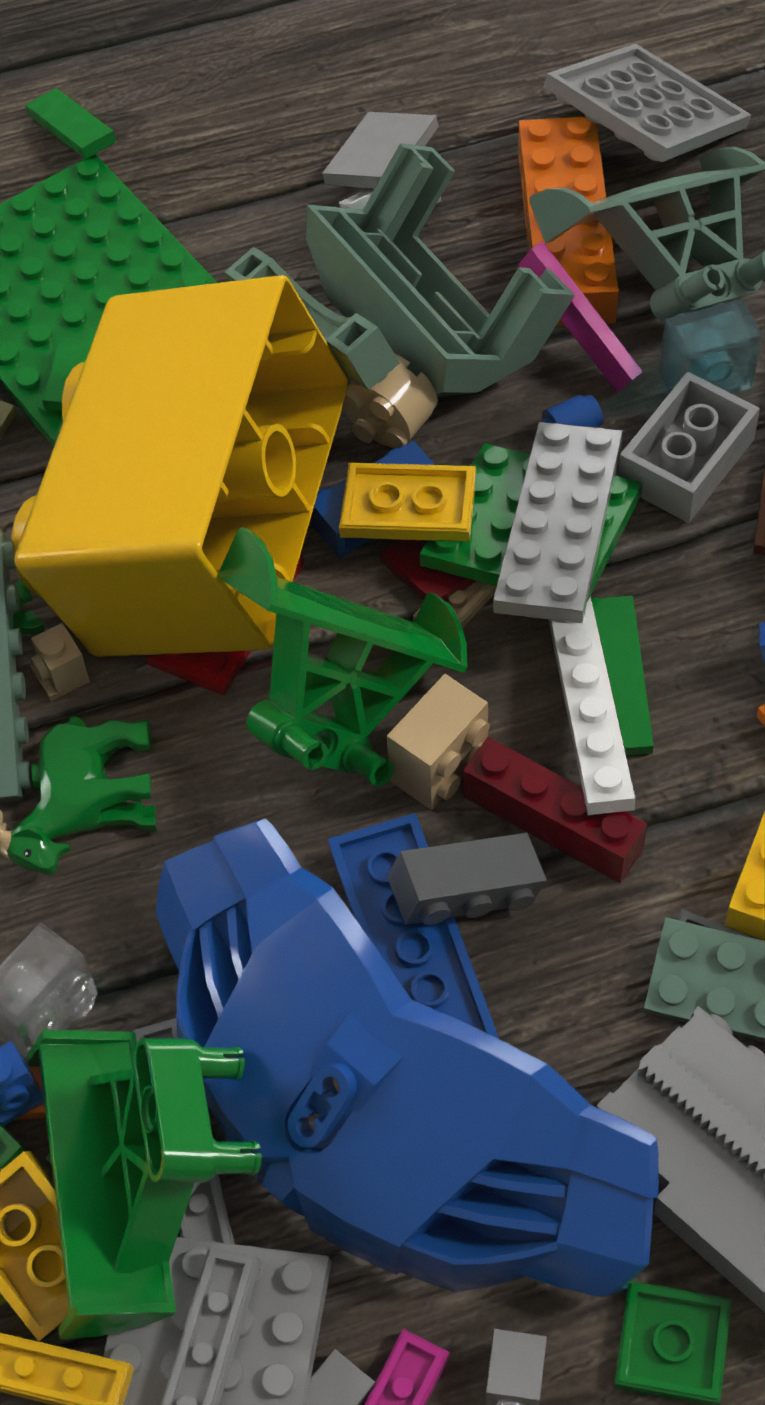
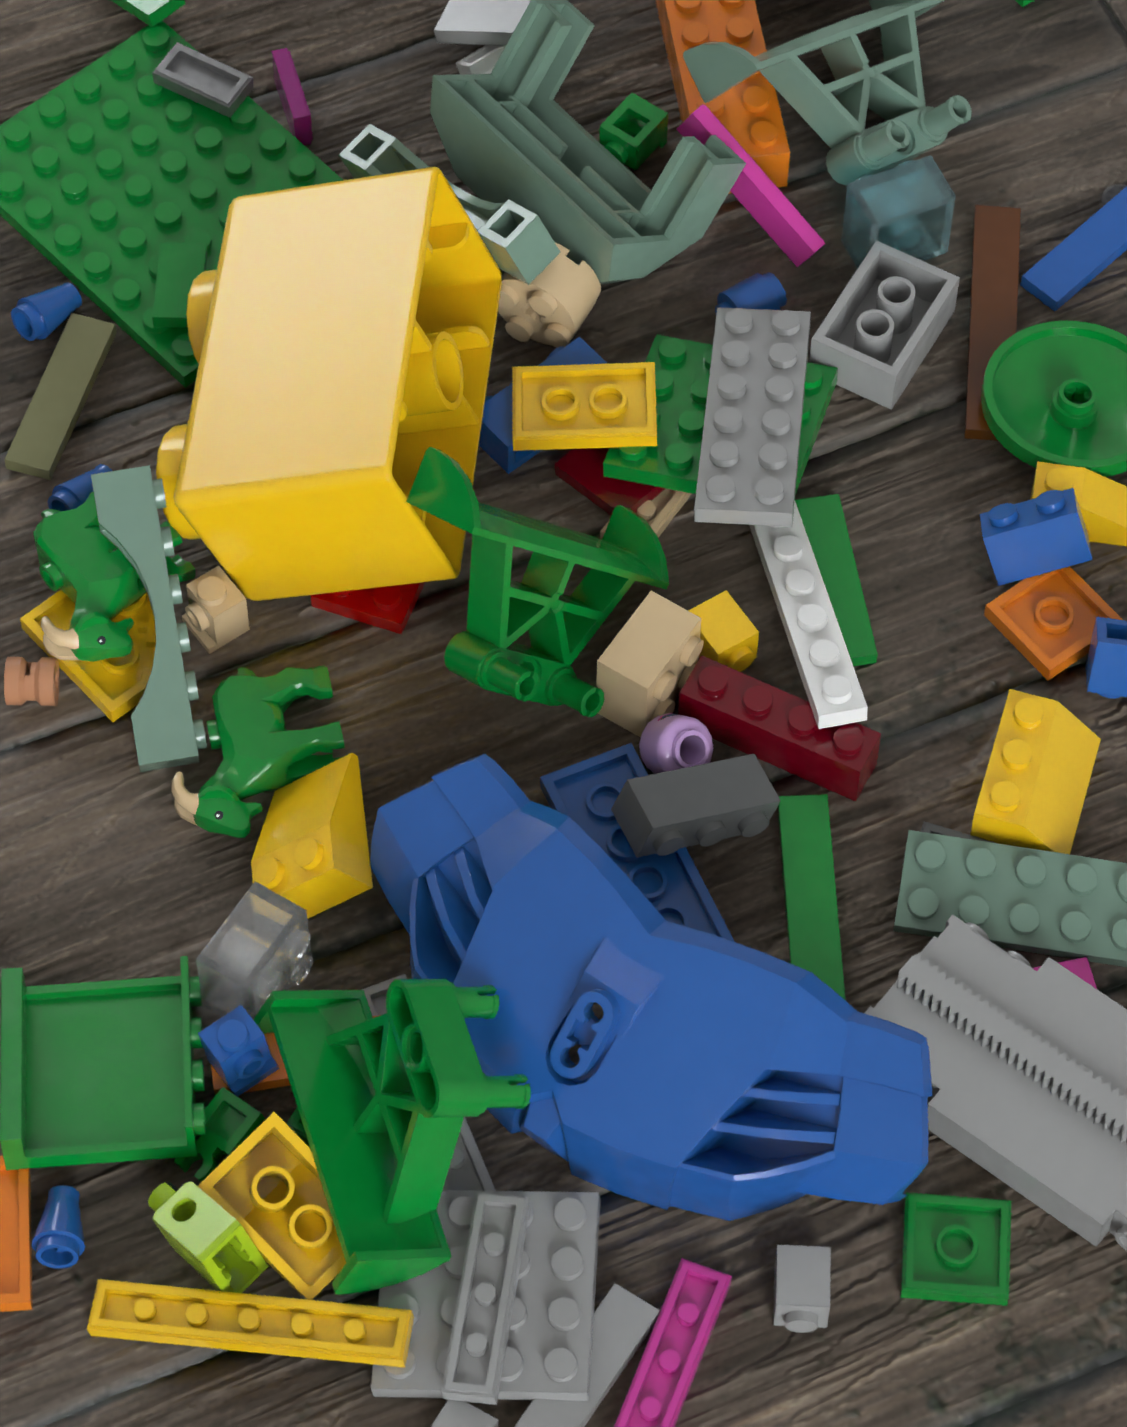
camera: 10 degrees left, 0 degrees up
(110, 886) = (316, 839): none -> yellow slope
(120, 204) = (203, 79): none -> flat silver tile
(195, 222) = (292, 96): none -> magenta tile
(455, 817) = (675, 743): none -> lavender head
(481, 273) = (630, 138): none -> green brick
(514, 717) = (727, 632): none -> yellow brick
(568, 978) = (810, 888): none -> green tile

